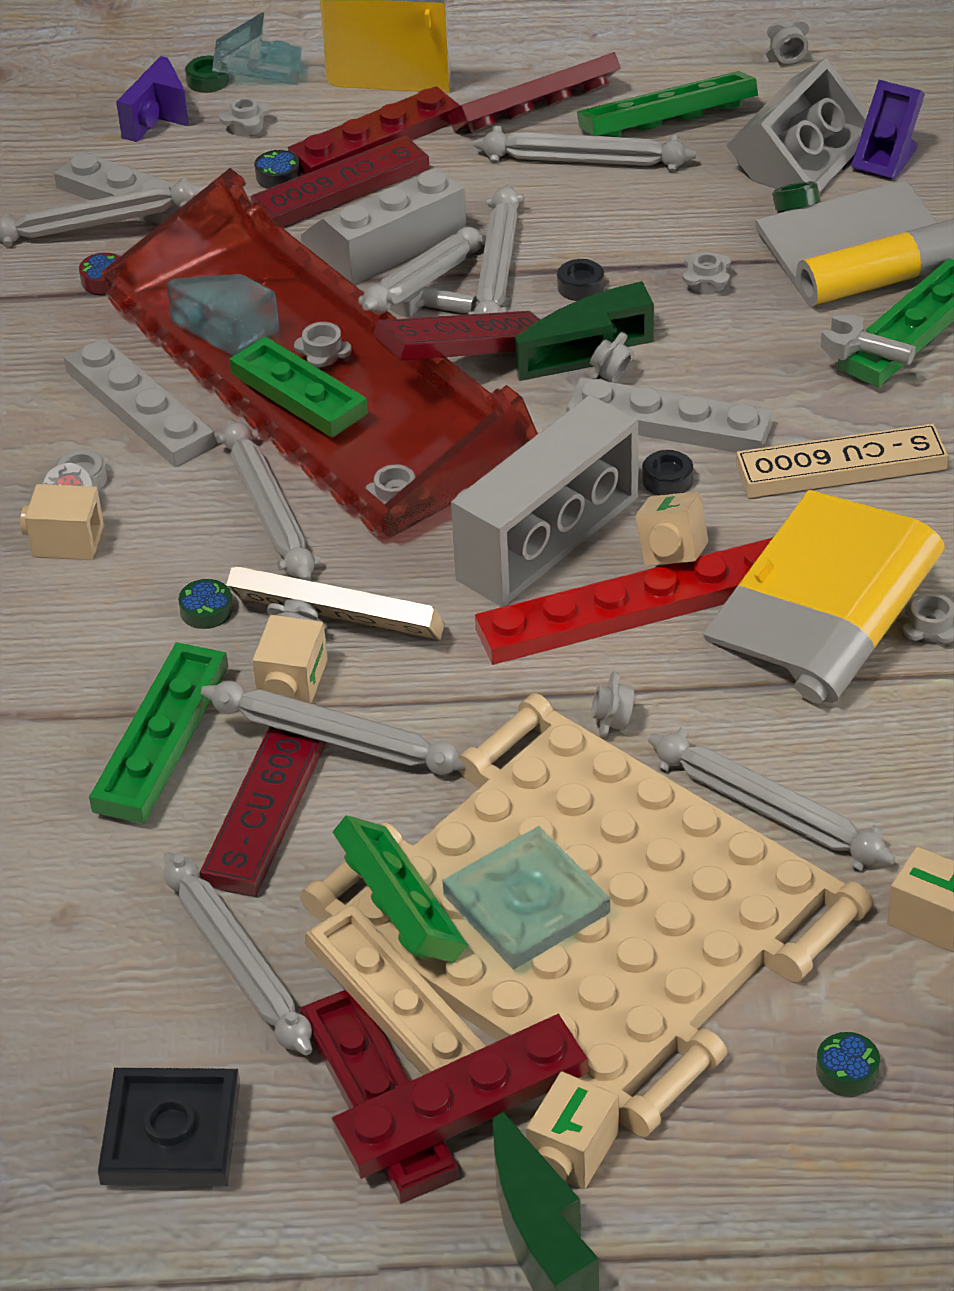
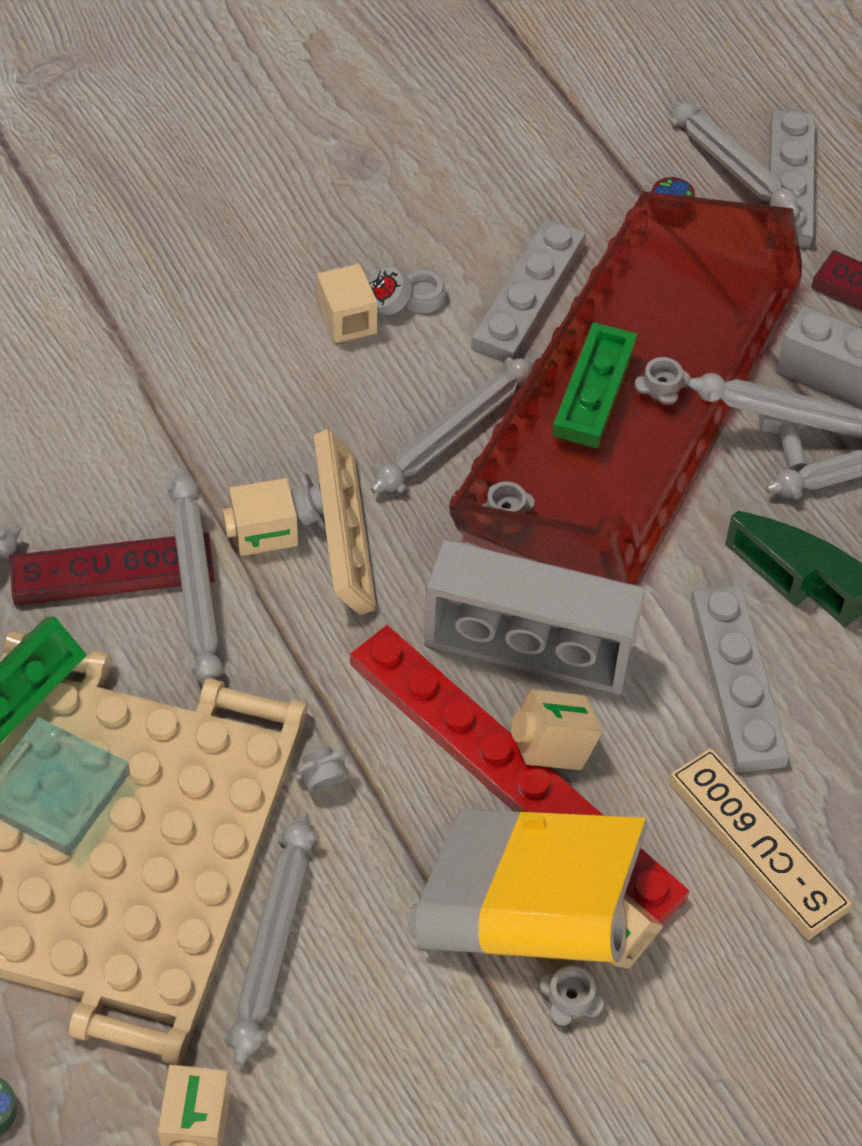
camera: 60 degrees right, 10 degrees up
(158, 733) = (146, 465): green plate -> none
(205, 603) = (304, 429): tile -> none
(224, 309) = (657, 296): clear light blue slope -> none
(453, 334) = (713, 465): dark red tile -> none
(611, 359) = (776, 600): light grey plate -> none
(667, 472) = (659, 704): black tile -> none

